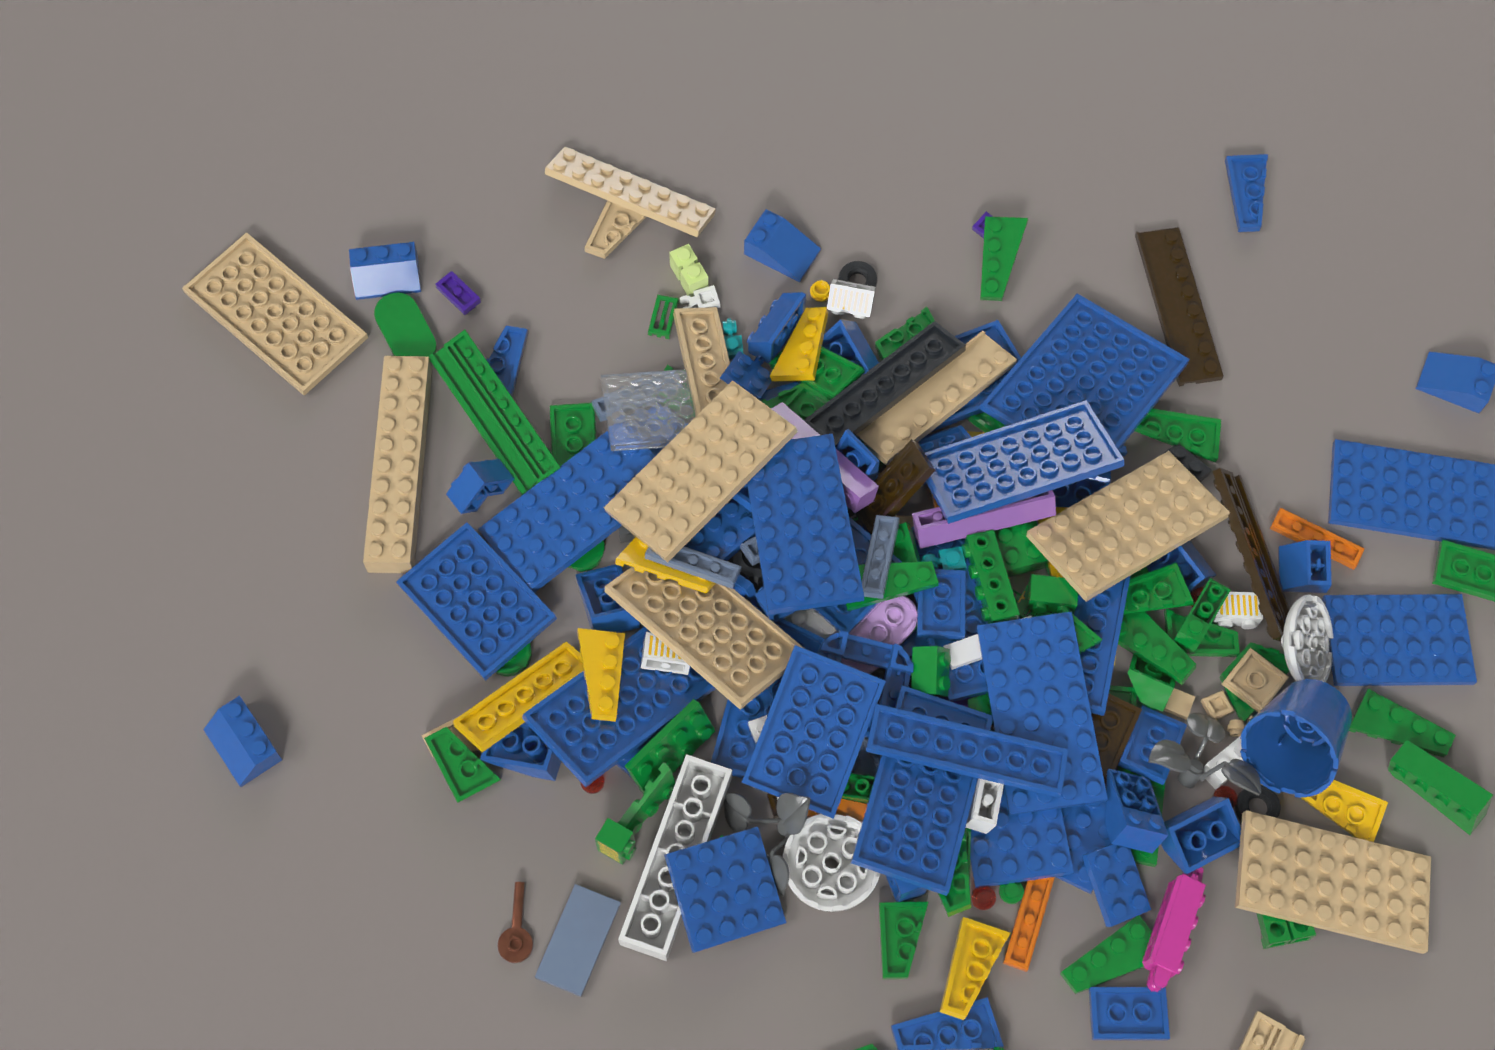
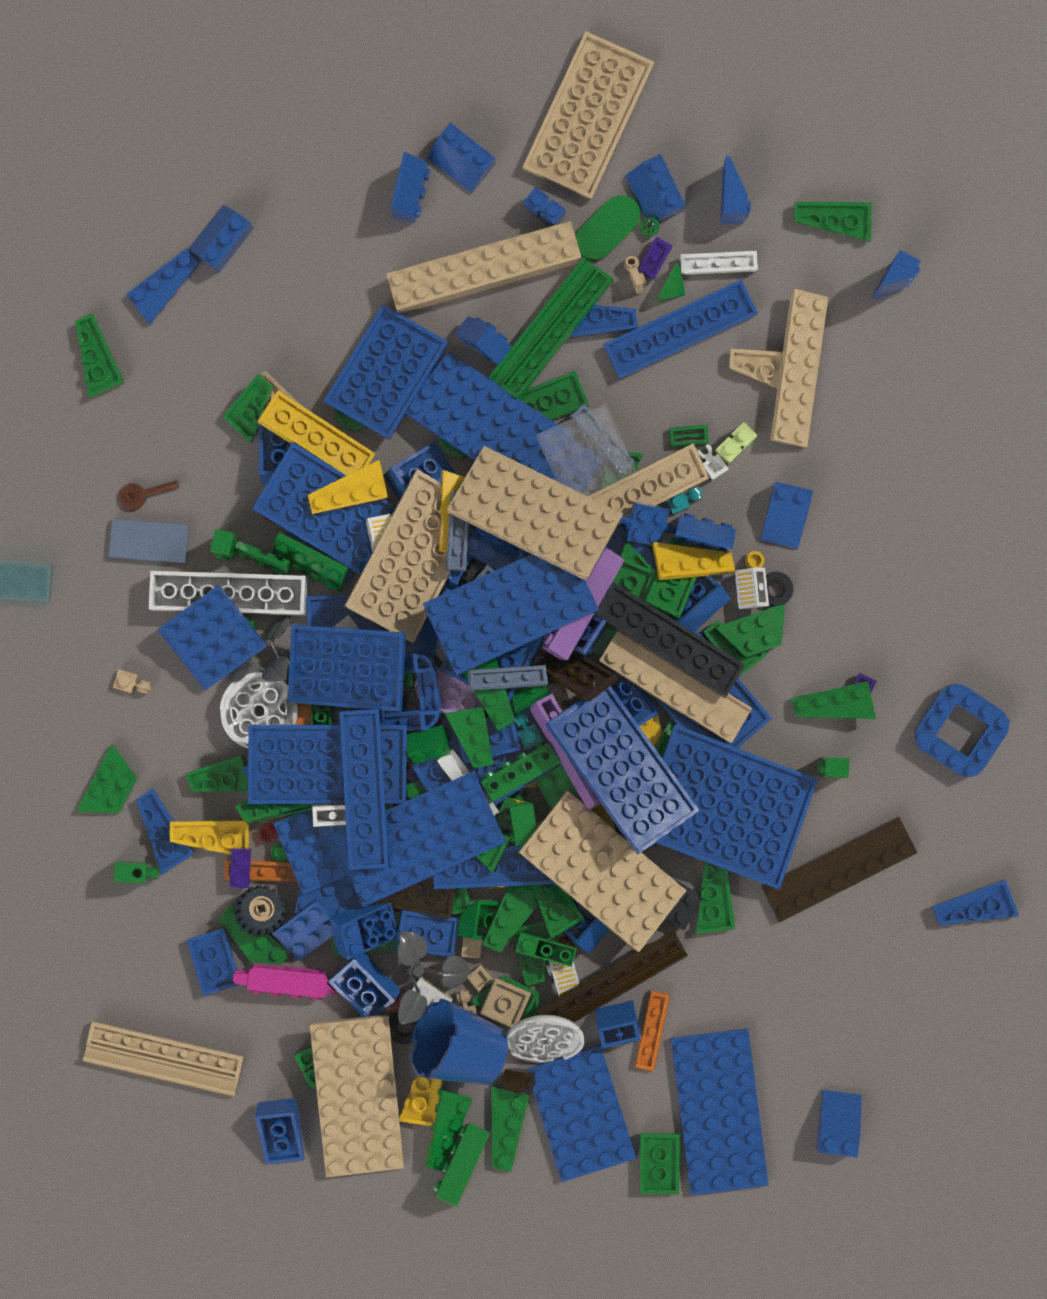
camera: 80 degrees right, 20 degrees up
(264, 450) = (461, 157): none -> blue slope
(271, 833) = (162, 285): none -> blue wing
(275, 513) = (410, 188): none -> blue slope
(327, 935) = (98, 362): none -> green wing
(347, 383) = (551, 213): none -> blue piece
(420, 196) = (733, 196): none -> blue slope
(421, 287) = (649, 227): none -> green tile
(471, 315) = (636, 278): none -> tan plate
(484, 116) = (843, 218): none -> green wing
(487, 235) = (718, 262): none -> white plate
(493, 284) = (673, 286): none -> green slope
(545, 292) = (680, 329): none -> blue plate
(566, 70) = (898, 275): none -> blue slope
(745, 1020) = (127, 681): none -> tan plate
(899, 309) = (755, 632): none -> green wing
(934, 614) = (473, 735): none -> green wing
(1019, 943) = (240, 867): none -> dark purple plate
(1040, 171) = (944, 753): none -> blue plate
(1068, 272) = (833, 767): none -> green brick
(1080, 932) = (259, 910): none -> black wheel
(1352, 688) = (519, 1080): none -> dark brown brick
(1359, 992) = (280, 1130): none -> blue slope
(1394, 794) = (448, 1121): none -> green wing

